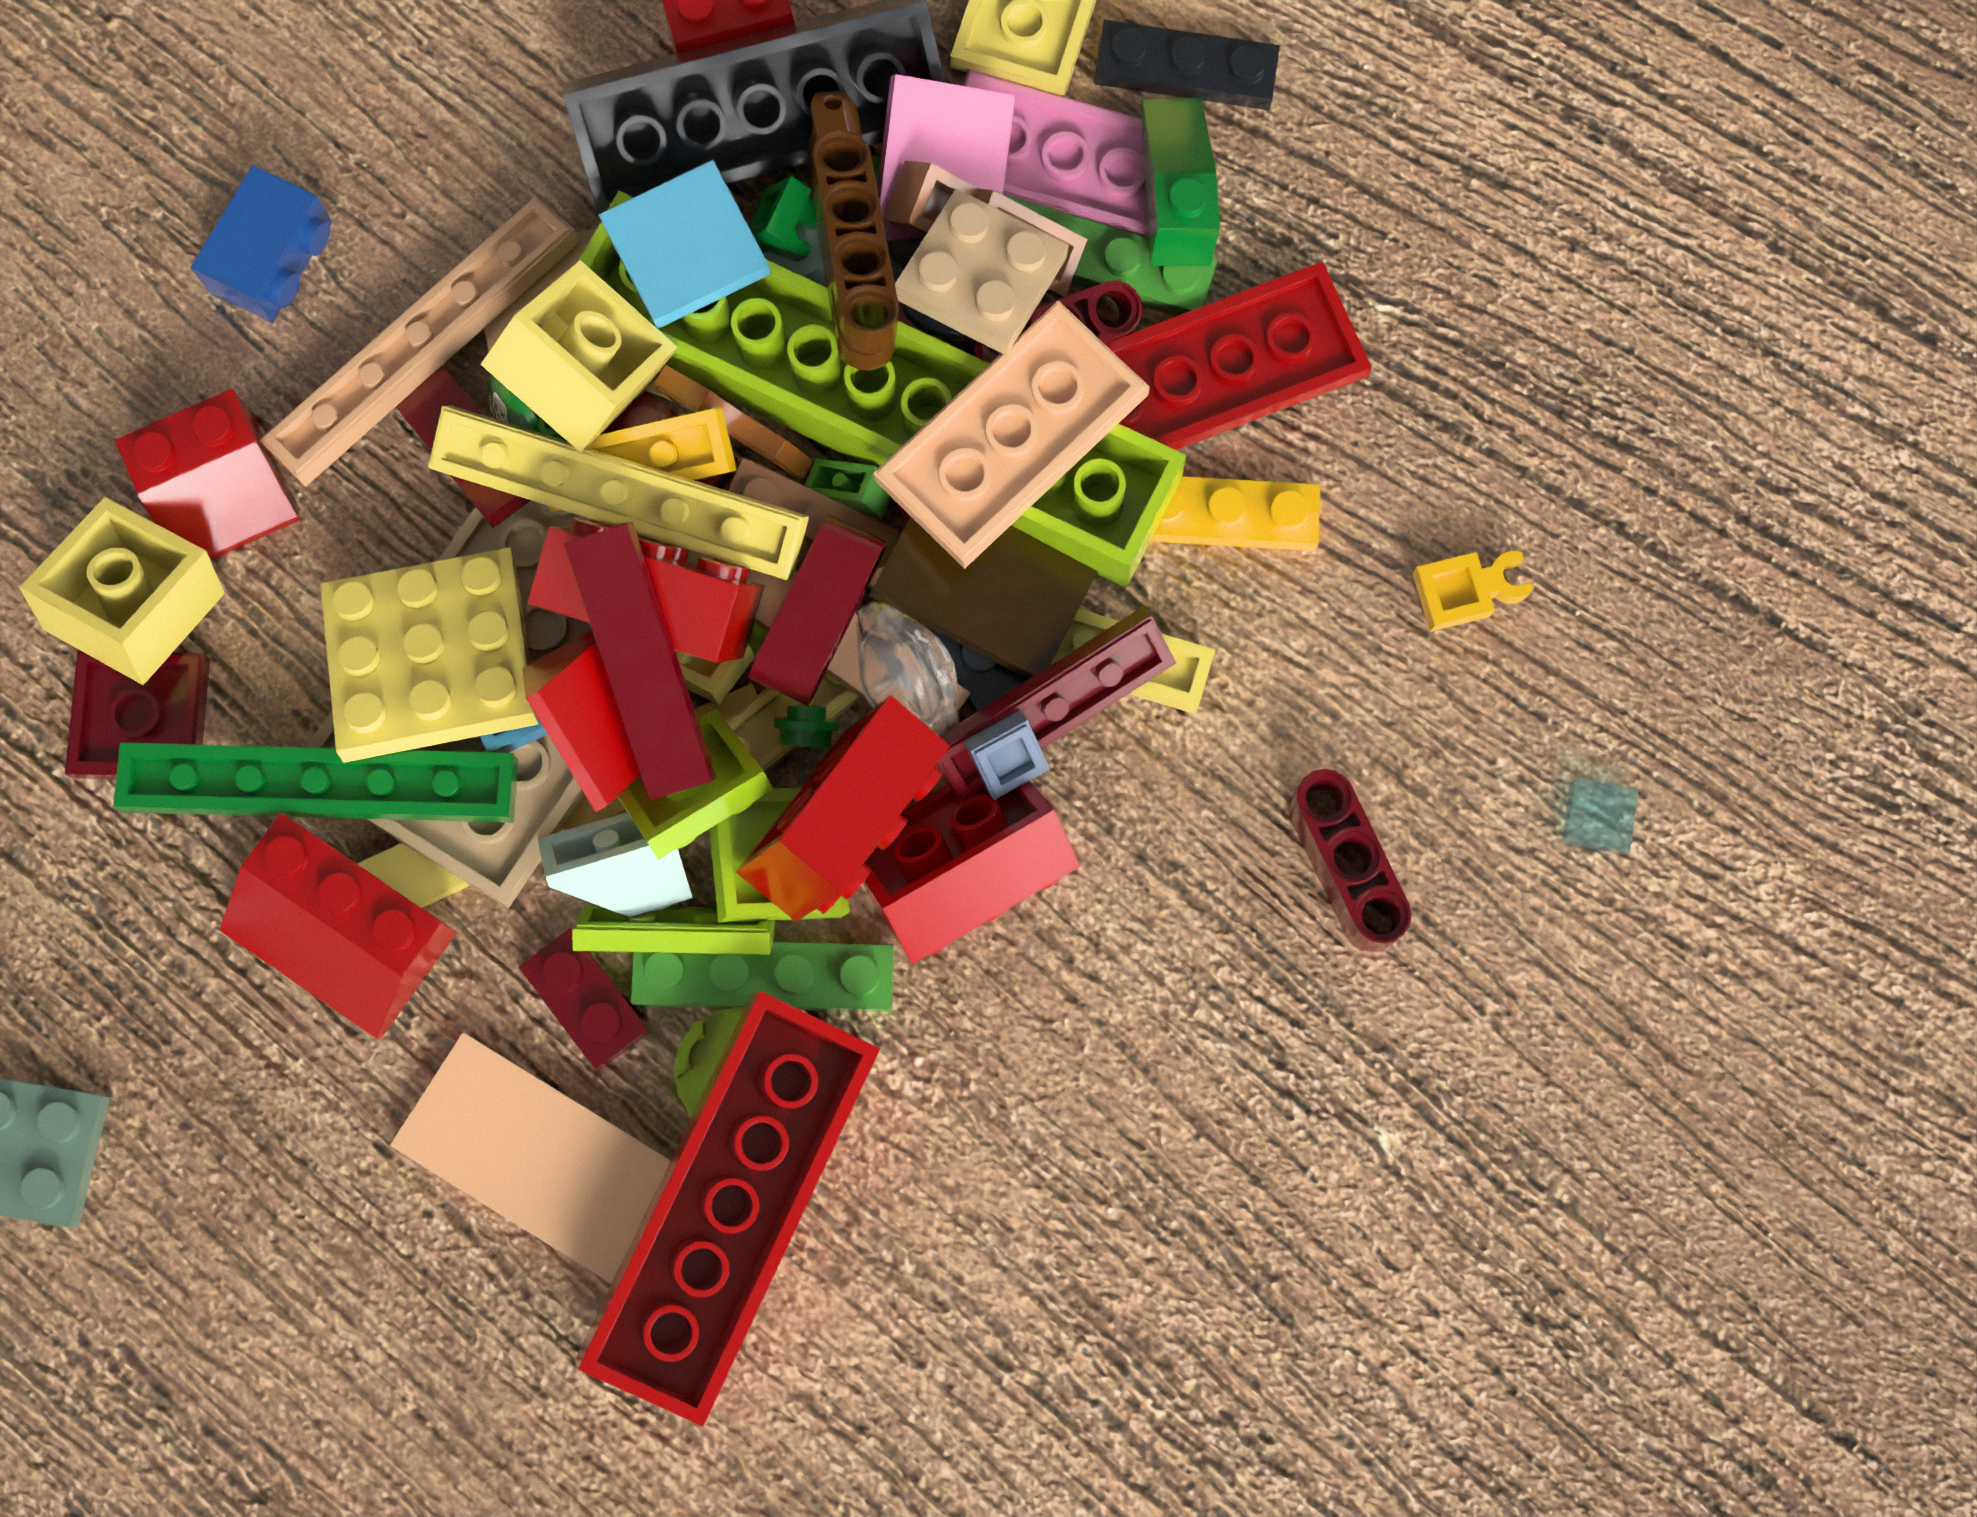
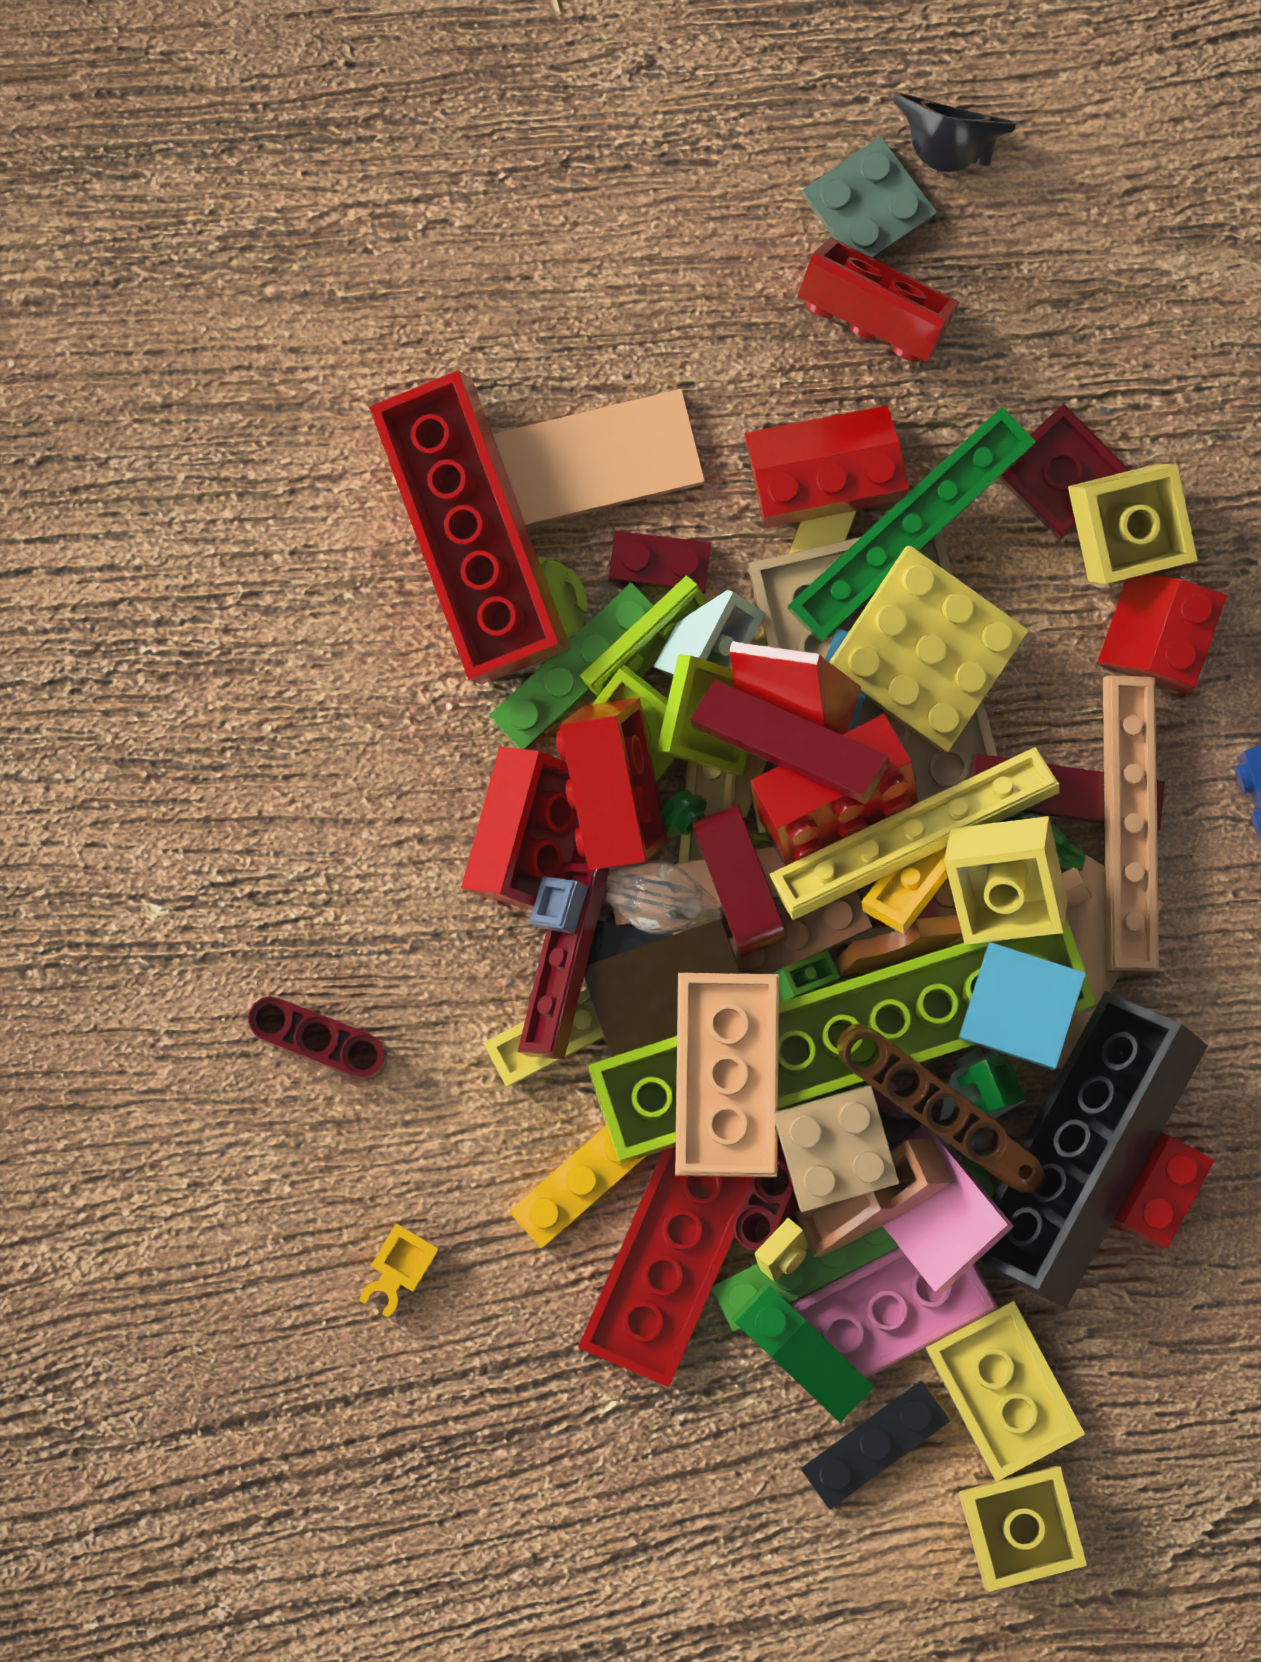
camera: 140 degrees right, 5 degrees up
(116, 1034) = (876, 300): none -> red slope
(1110, 262) = (782, 1250): none -> light yellow plate
(1600, 816) = (202, 1207): clear light blue tile -> none

